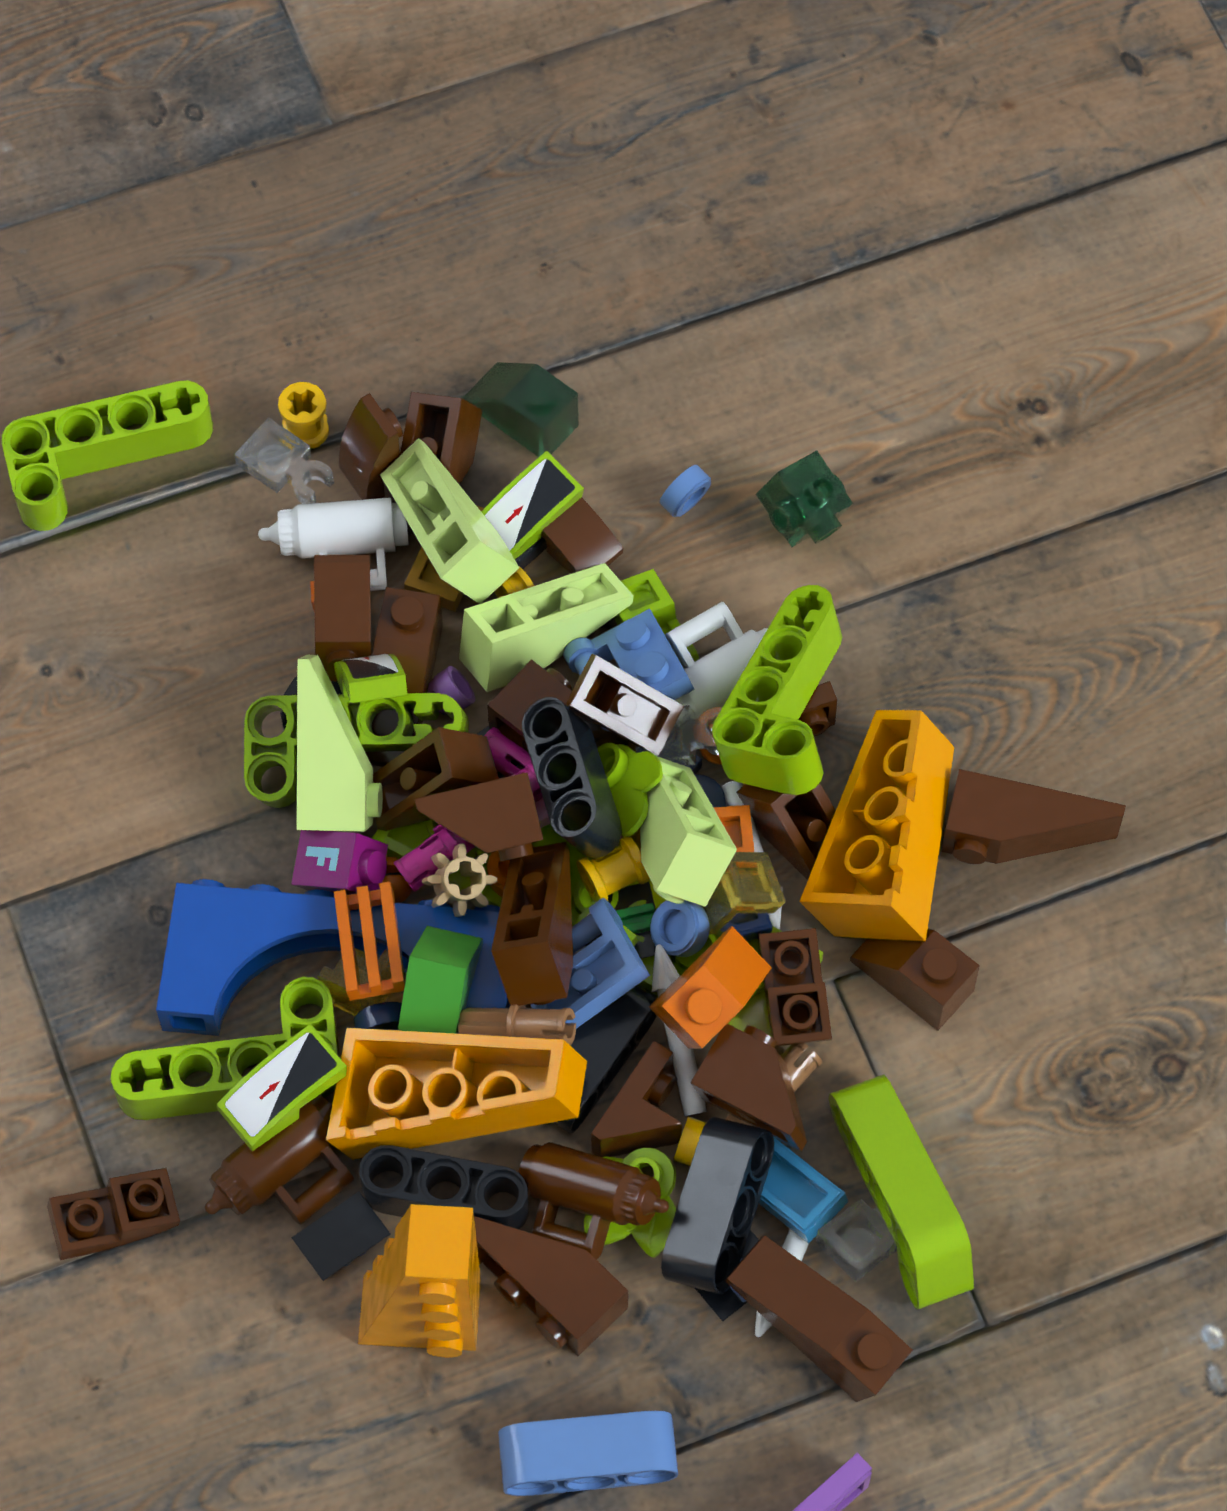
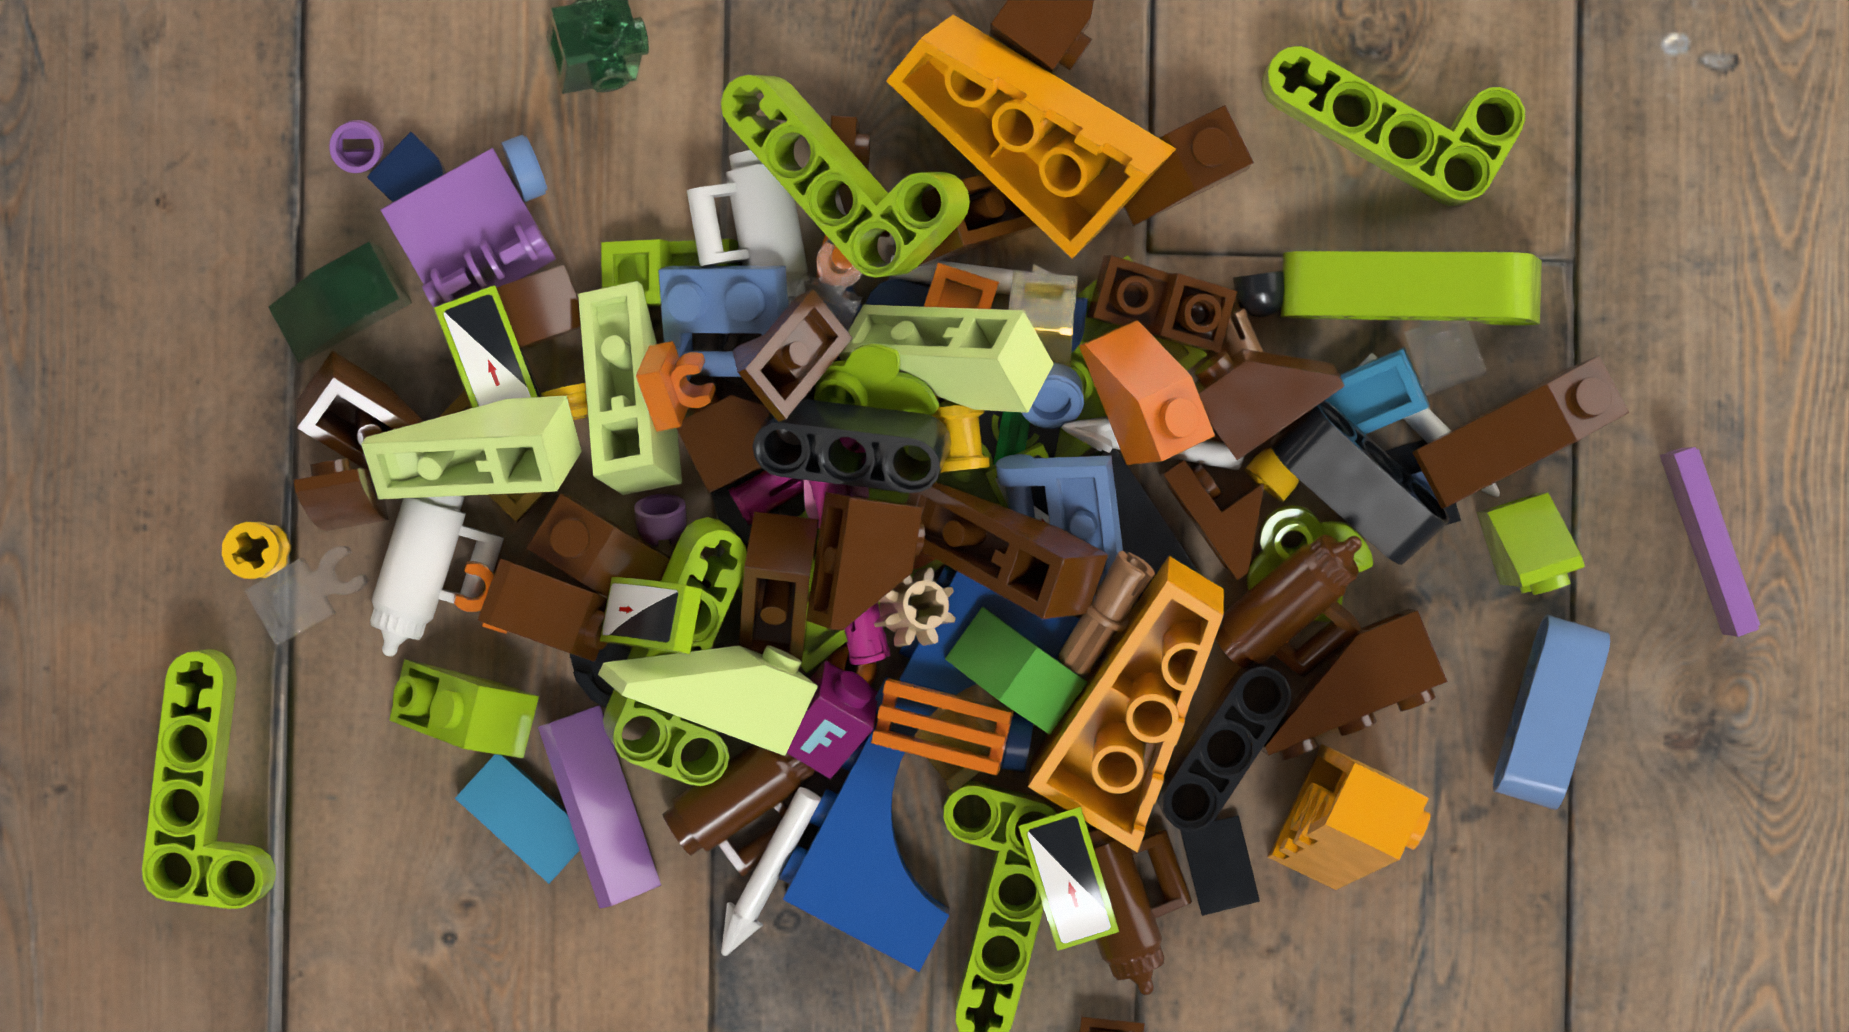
camera: 70 degrees left, 25 degrees up
(152, 874) = (742, 918): none -> white piece
(167, 684) = (521, 816): none -> dark azure tile
(193, 732) = (599, 807): none -> medium lavender tile
(237, 603) = (463, 709): none -> lime slope
(243, 825) = (746, 790): none -> reddish brown piece
(560, 640) = (666, 386): none -> orange tile
(621, 469) = (468, 231): none -> medium lavender hinge
(639, 381) = (357, 159): none -> medium lavender hinge
(644, 420) = (406, 168): none -> dark blue tile
(725, 1366) = (1530, 544): none -> lime slope
(840, 1070) = (1260, 293): none -> black hinge
(1031, 1110) = (1384, 112): none -> lime beam

